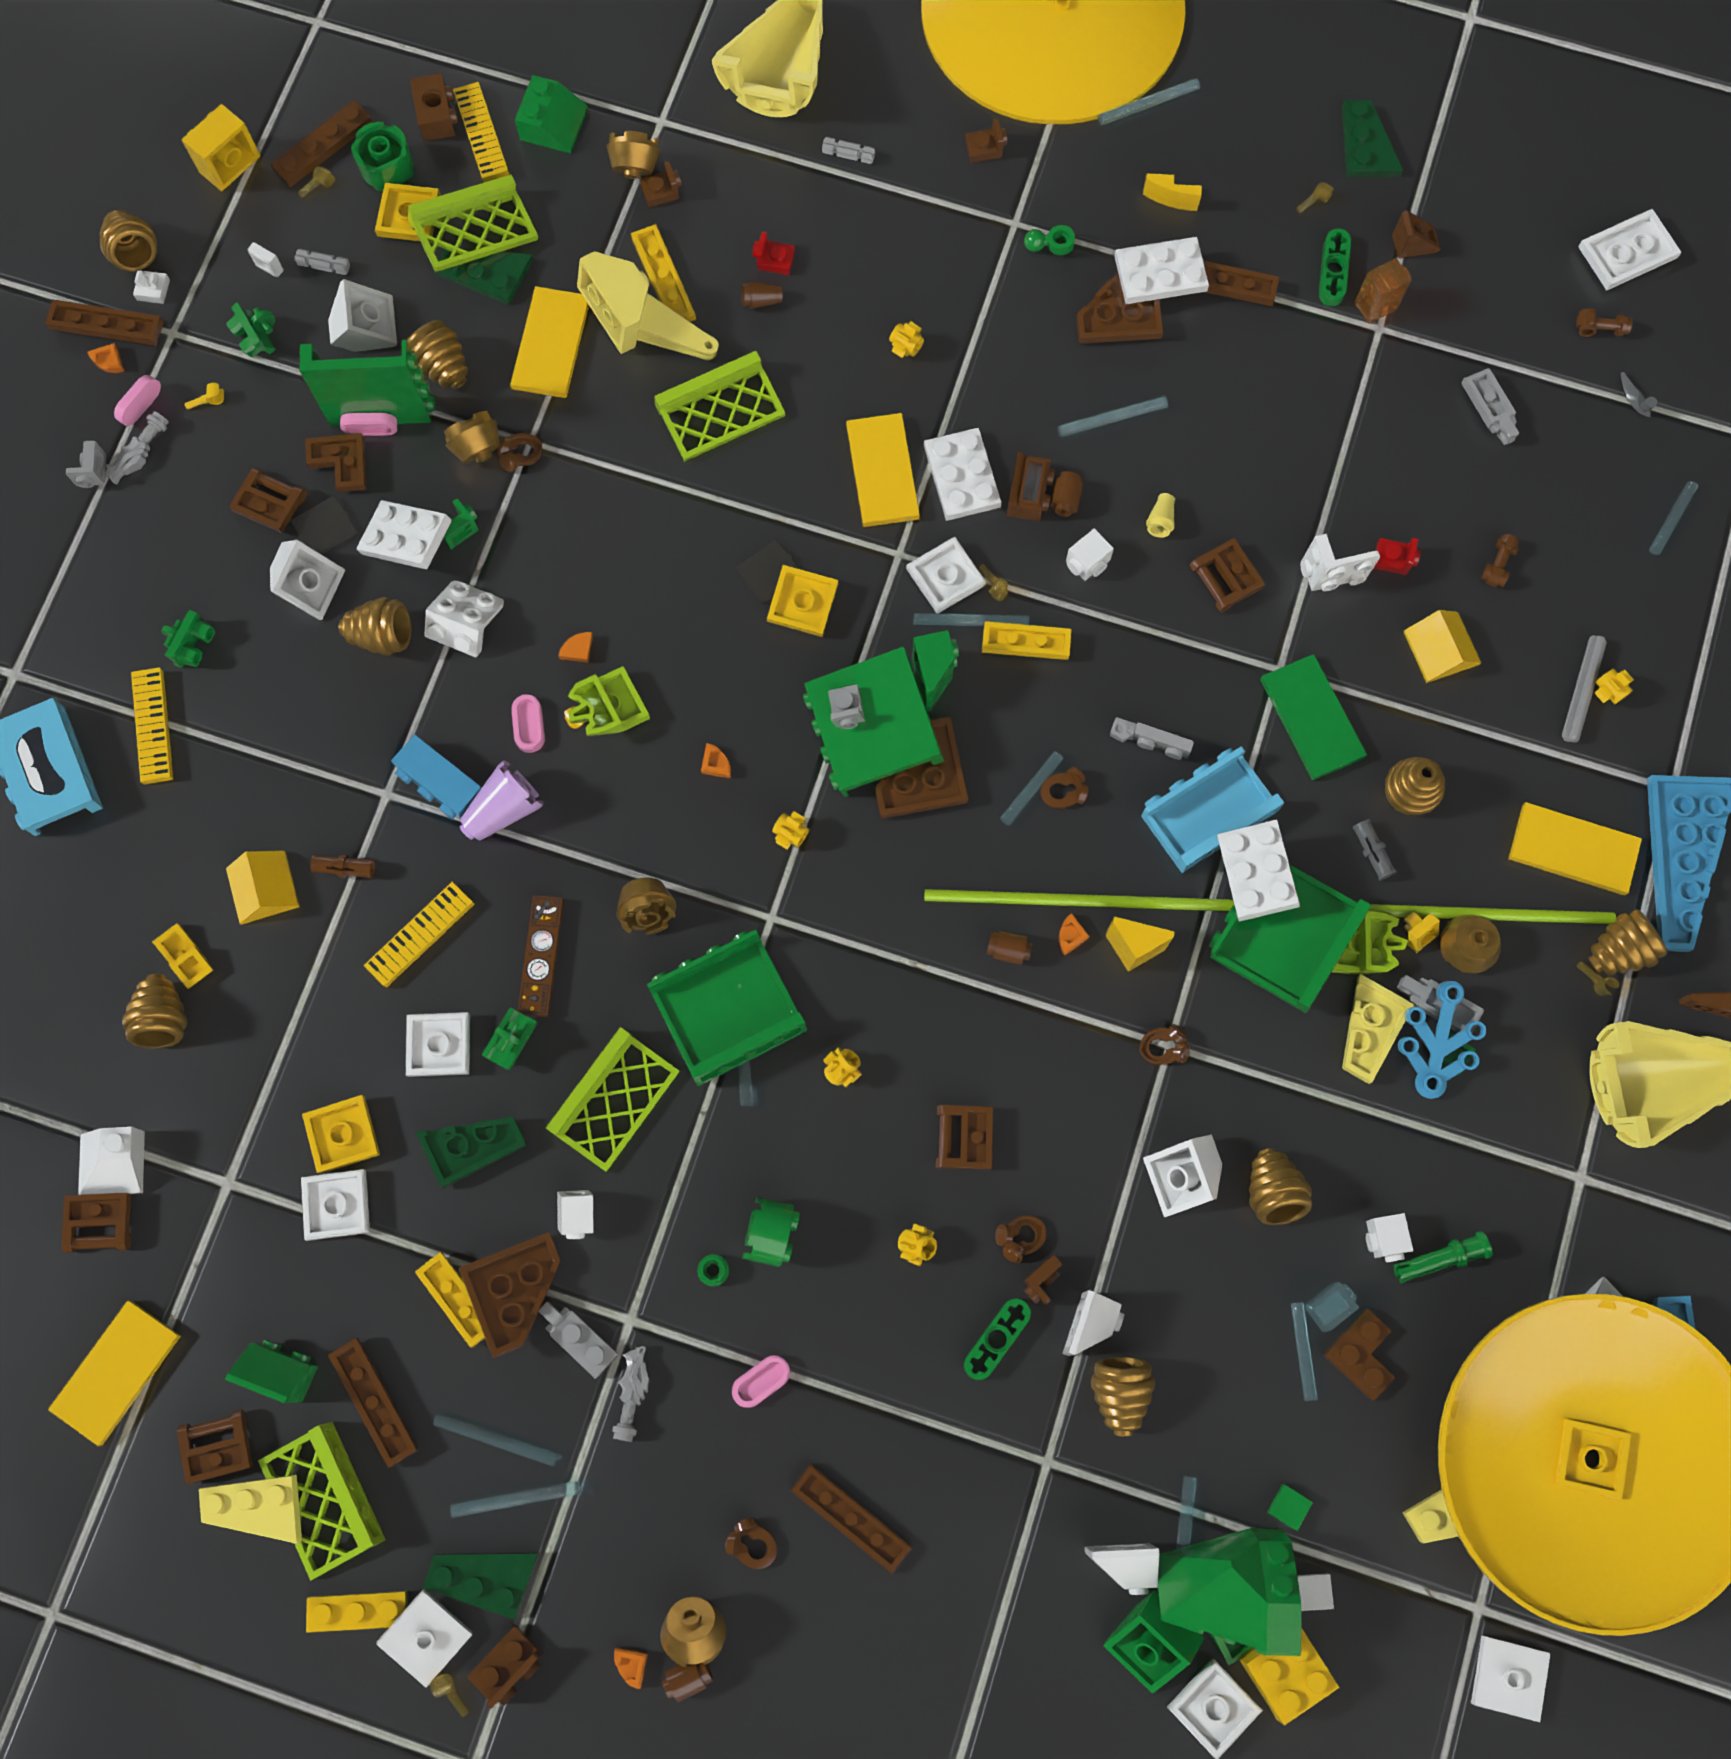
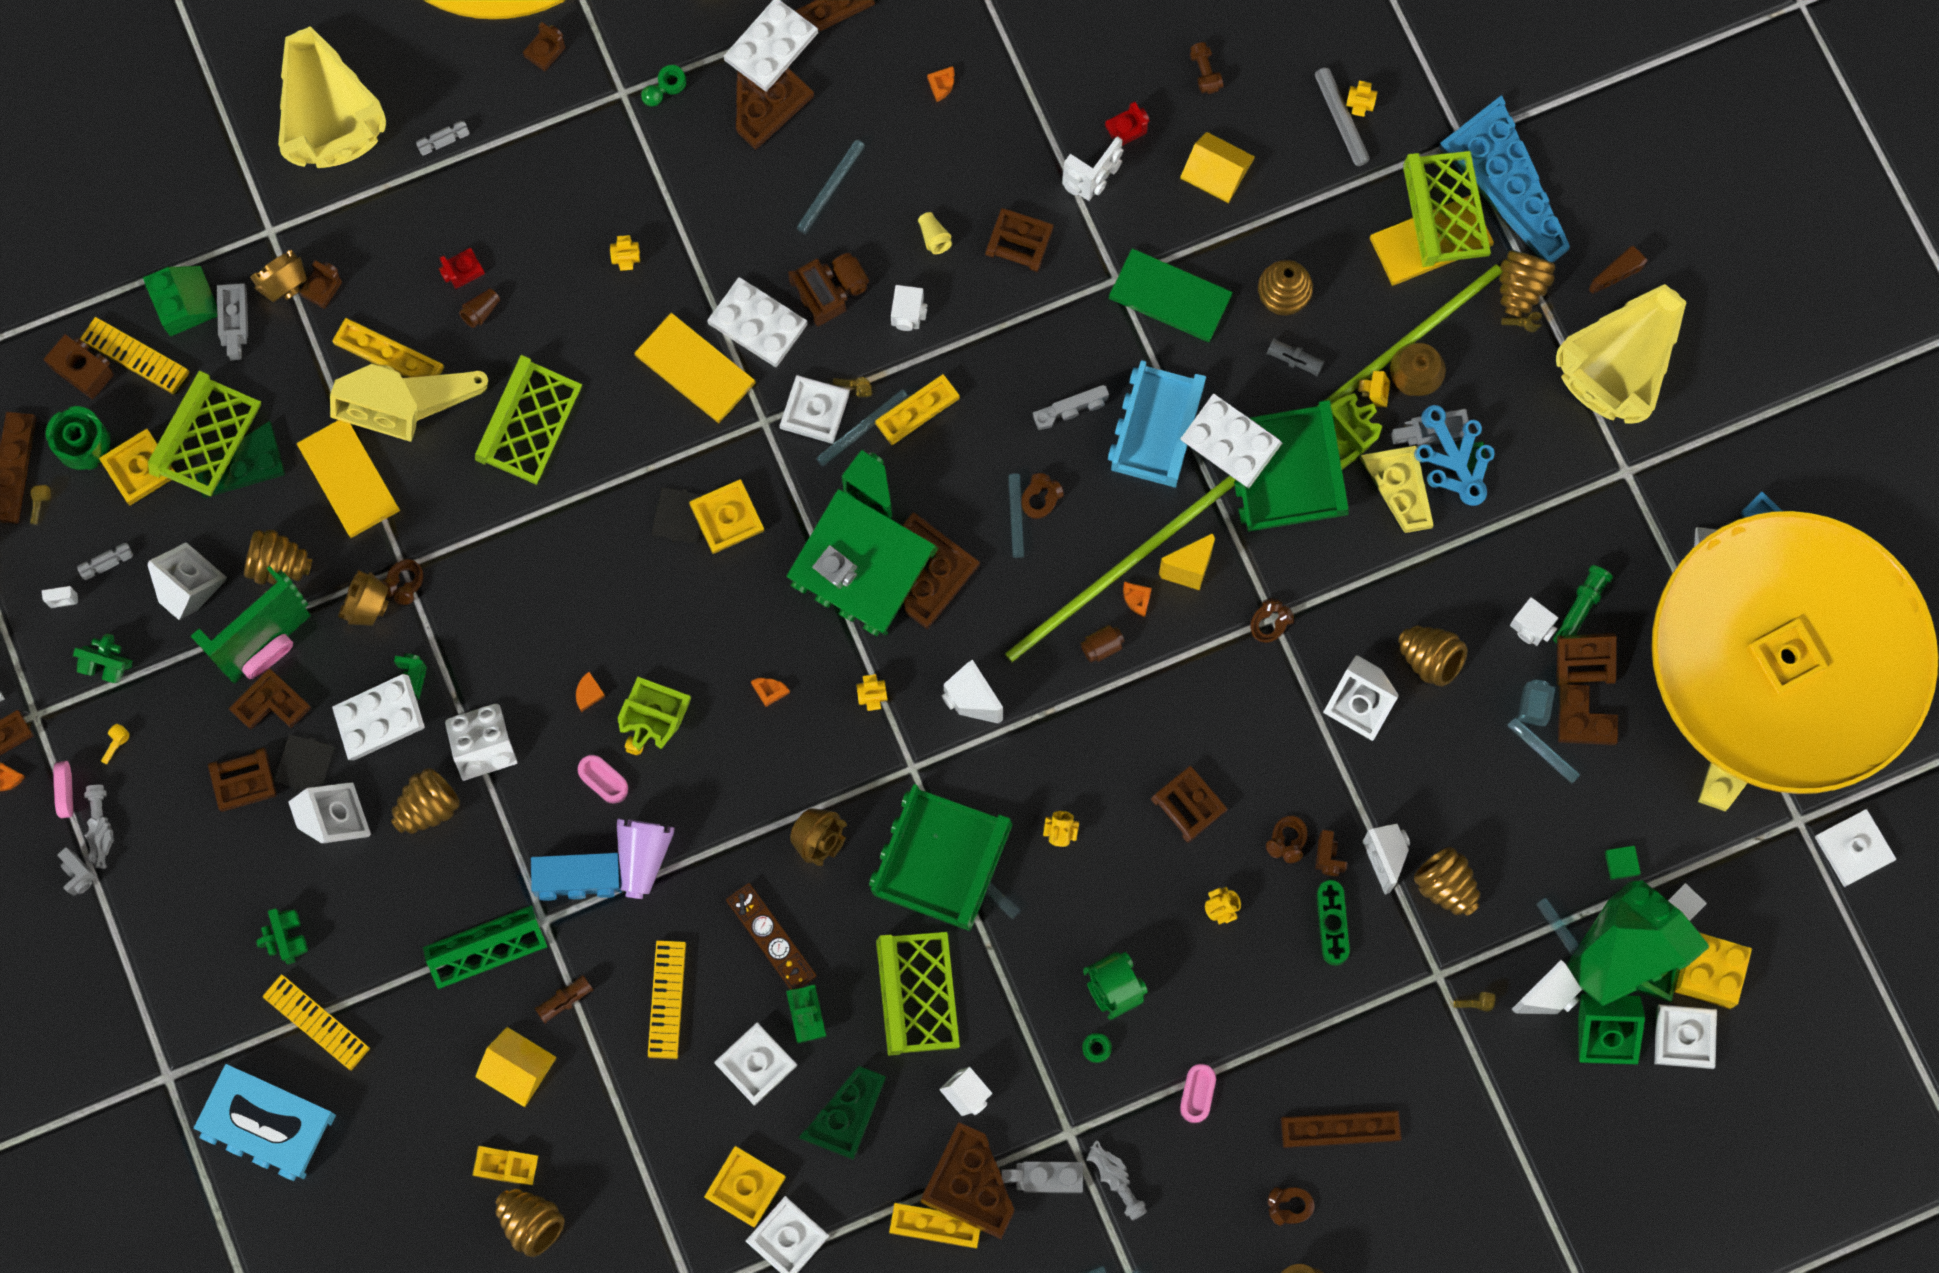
camera: 40 degrees left, 0 degrees up
(322, 765) = (481, 938): none -> green fence
(573, 160) = (232, 318): none -> light grey hinge
(865, 898) = (972, 695): none -> white slope
(1066, 1521) = (1485, 1002): none -> clear yellow hand
(1273, 406) = (941, 82): none -> orange tile
(1414, 1300) = (1586, 650): none -> reddish brown plate
(1586, 822) = (1422, 209): none -> lime fence

